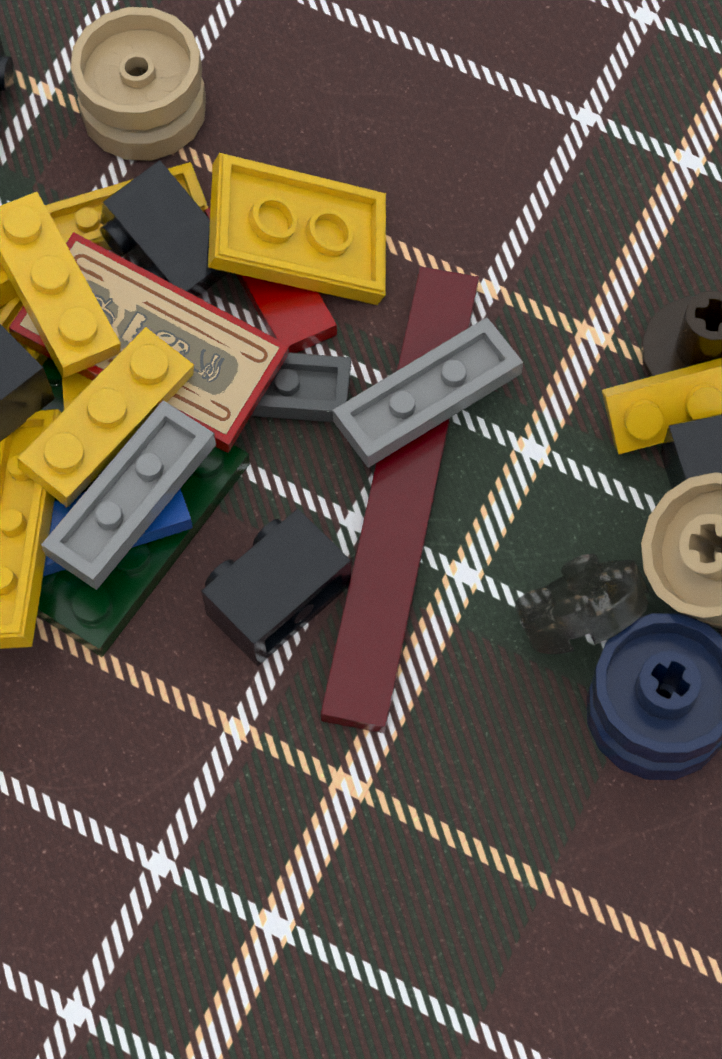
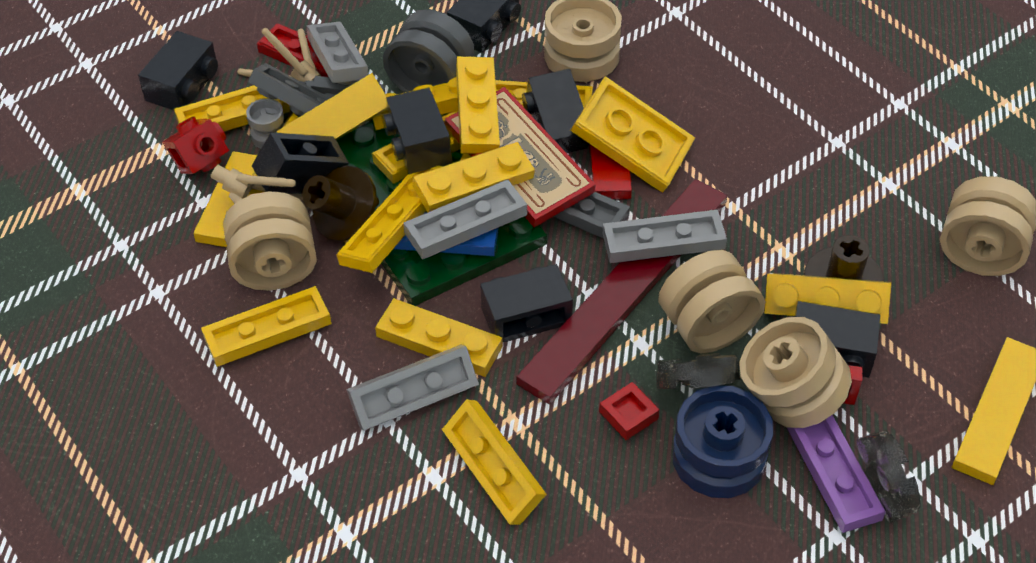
camera: 25 degrees right, 15 degrees down
(170, 694) = (434, 333): none -> yellow plate
(178, 801) = (412, 387): none -> light grey plate
(357, 870) = (493, 462): none -> yellow plate
(507, 699) = (629, 411): none -> red plate
(550, 478) = (711, 301): none -> tan wheel

